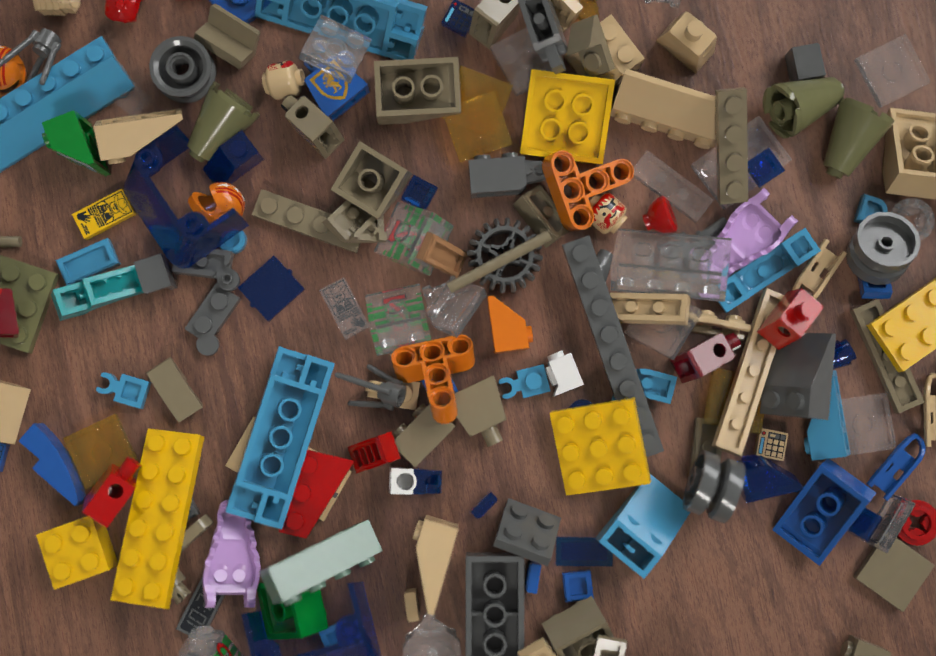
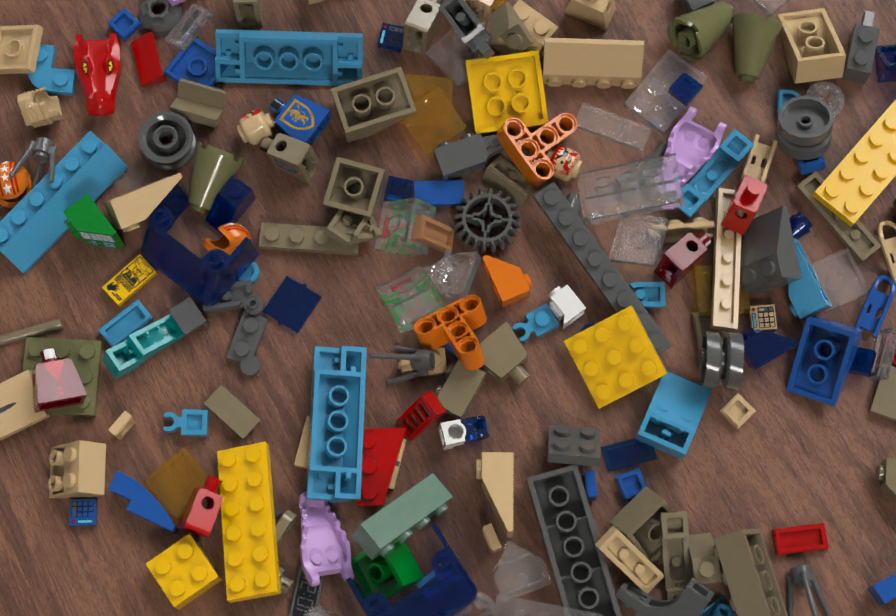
camera: 10 degrees left, 10 degrees down
(54, 373) = (122, 425): none -> tan tile
(335, 48) = (294, 88): clear plate -> none
(344, 308) = (361, 303): clear tile -> none
(462, 208) = (440, 193): none -> blue tile
(484, 505) = (530, 435): clear blue tile -> none
(499, 261) = (485, 223): dark tan bar -> none
(652, 308) = (625, 228): tan plate -> none
(660, 216) = (610, 153): red brick -> none
(713, 538) = (737, 411): none -> tan tile
(731, 145) = (652, 77): dark tan plate -> none

